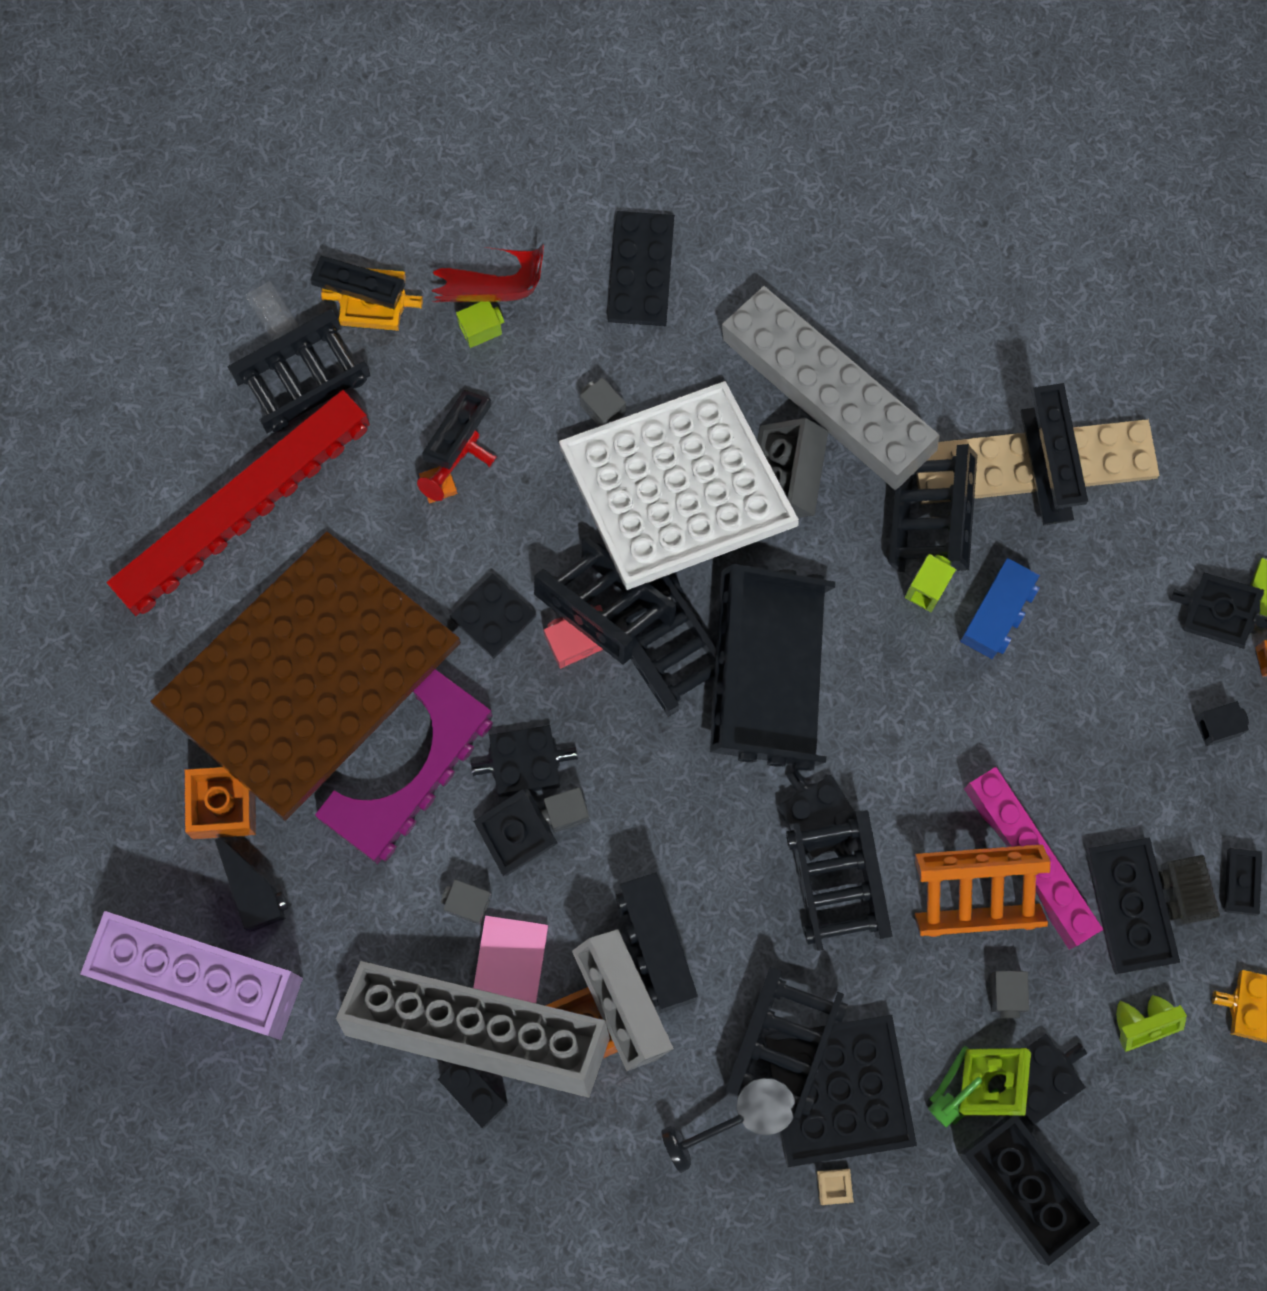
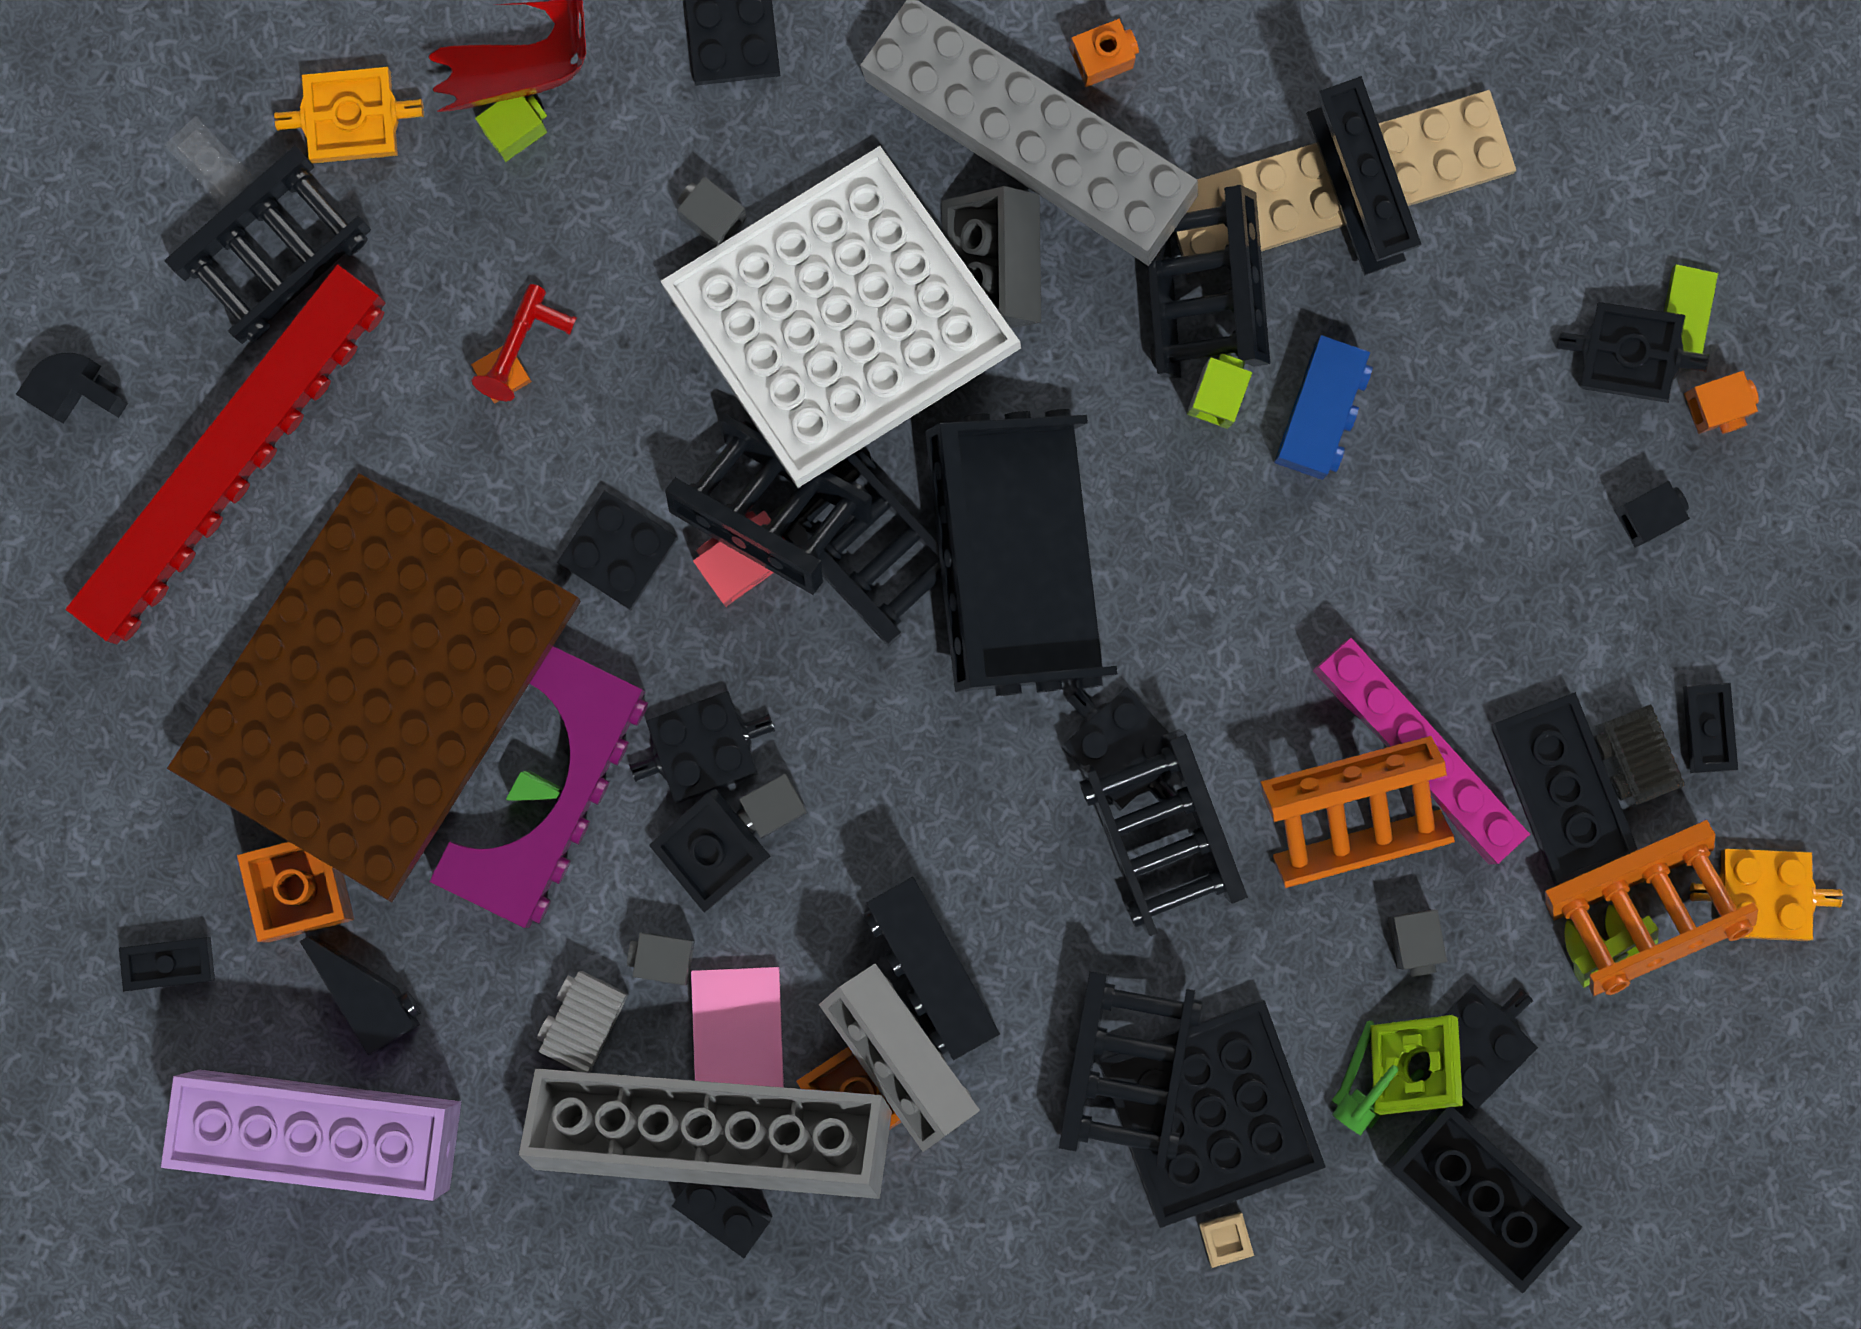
camera: 15 degrees left, 10 degrees up
(118, 840) = (166, 964): none -> black plate
(142, 432) = (61, 381): none -> black brick
(357, 282) = (323, 97): black tile -> none
(399, 766) = (533, 787): none -> bright green slope
(400, 936) = (582, 1021): none -> light grey brick
(456, 429) = (511, 290): black tile -> none
(762, 1106) = (1111, 1159): piece -> none
(888, 347) = (1104, 52): none -> orange brick
(1188, 970) = (1653, 866): none -> orange fence

